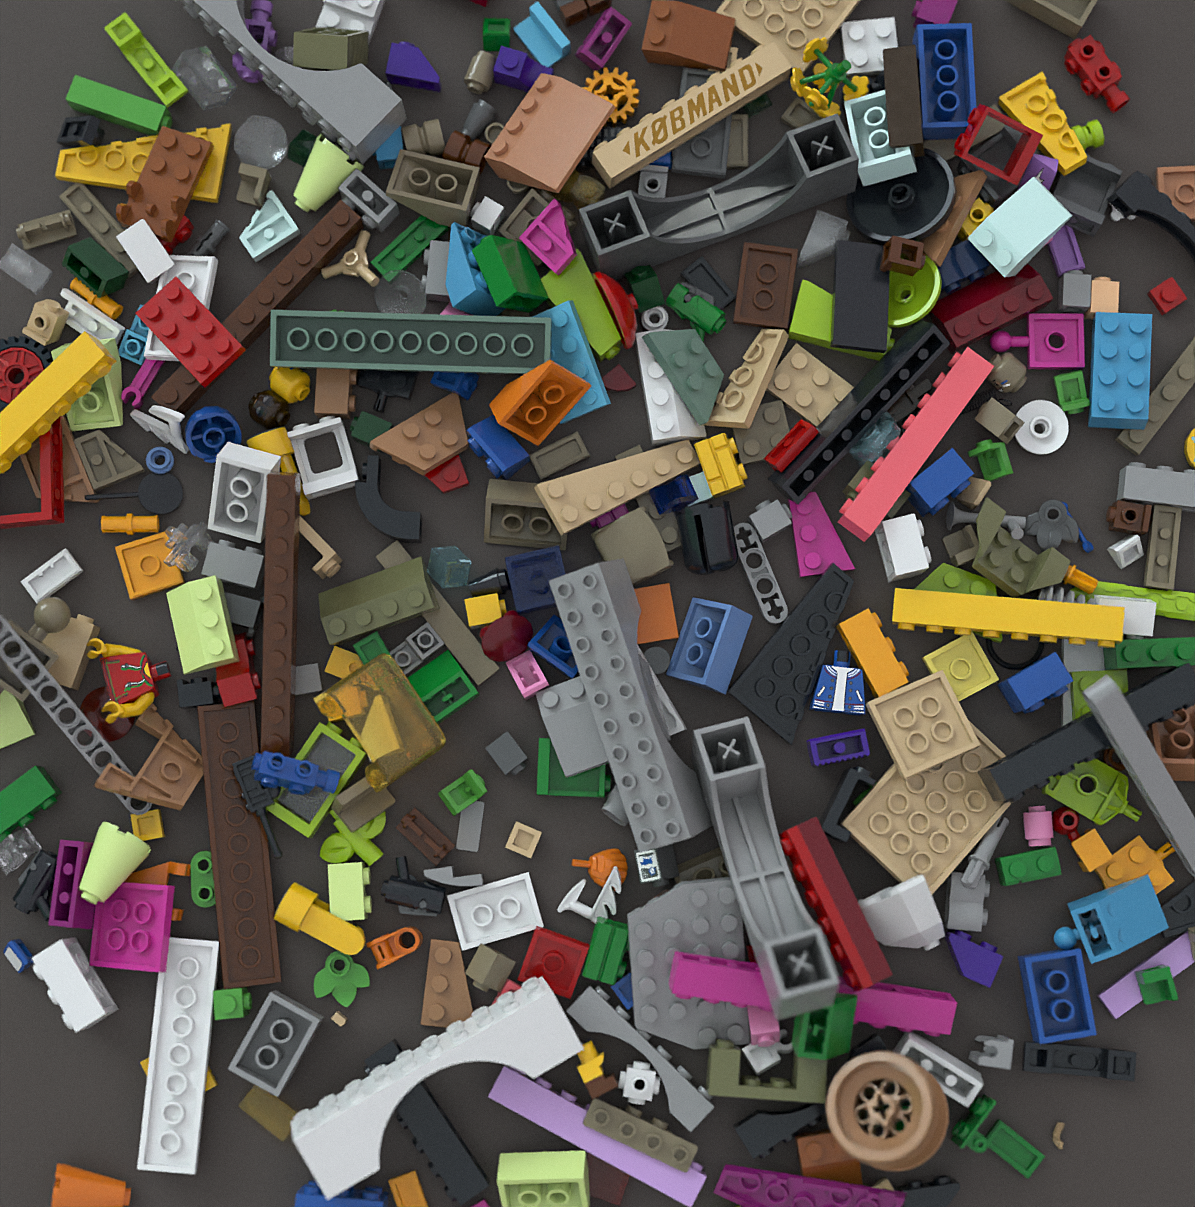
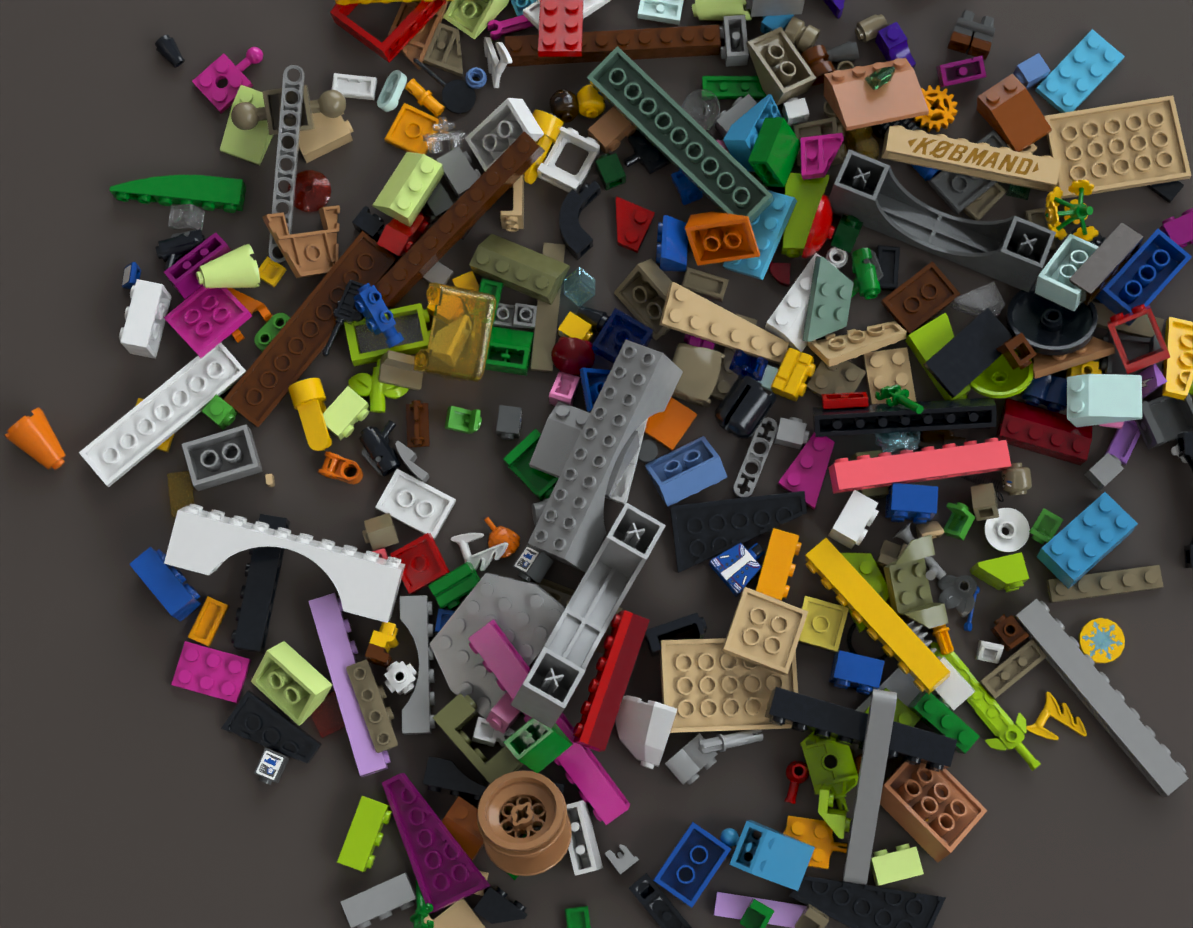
camera: 45 degrees right, 5 degrees down
(92, 547) = (392, 91): none -> light aqua plate
(128, 678) = (340, 180): torso -> none
(210, 431) = (519, 84): blue cylinder -> none
(341, 982) = (291, 461): bright green plate -> none
(354, 262) = (693, 68): tan piece -> none
(427, 436) = (637, 201): medium nougat wing -> none
(446, 986) = (347, 518): medium nougat wing -> none
(470, 827) = (448, 444): light grey sticker -> none
(496, 33) = (902, 14): green slope -> none
(523, 839) = (471, 479): tan plate -> none
(540, 113) = (880, 77): none -> clear green slope
(543, 37) = (927, 40): medium azure panel -> none
(656, 176) = (915, 175): light grey brick -> none
(838, 398) = (898, 397): none -> green piece
(838, 747) = (702, 598): dark purple brick -> none
(864, 44) = (1118, 210): white plate -> none
(965, 1131) = (559, 891): green hinge -> none
(972, 960) = (662, 798): dark purple slope -> none
(1027, 866) = (748, 774): green brick -> none
(1038, 826) = (777, 758): bright pink brick -> none
(1039, 351) = (1050, 486): dark pink plate -> none
(1078, 467) = (1002, 572): none -> lime slope
(1091, 850) = (794, 801): light orange panel -> none
(1103, 297) = (1119, 488): light nougat brick -> none
(1139, 831) = (835, 818): none -> lime slope
(1167, 296) = (1161, 526): red plate -> none

